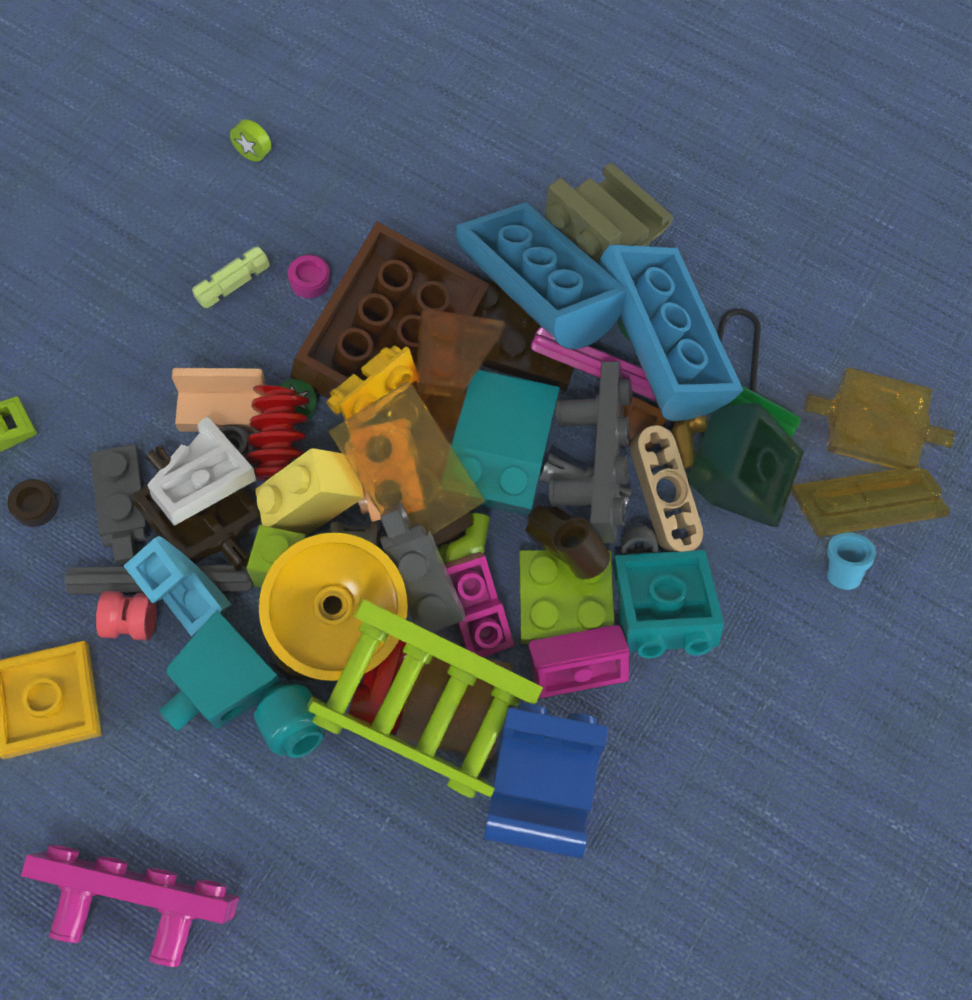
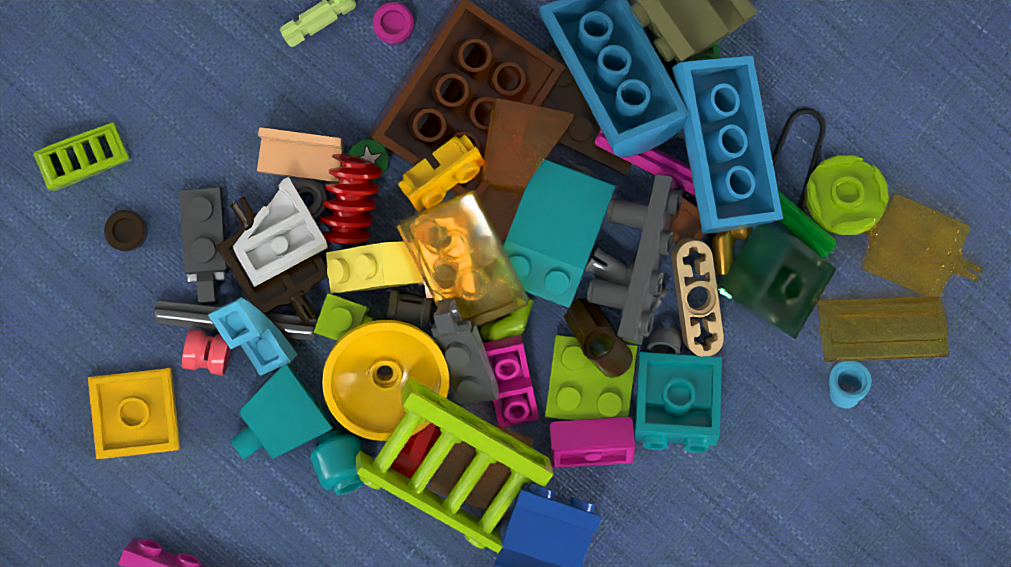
camera: 10 degrees right, 20 degrees up
(798, 376) = (846, 195): none -> lime tile

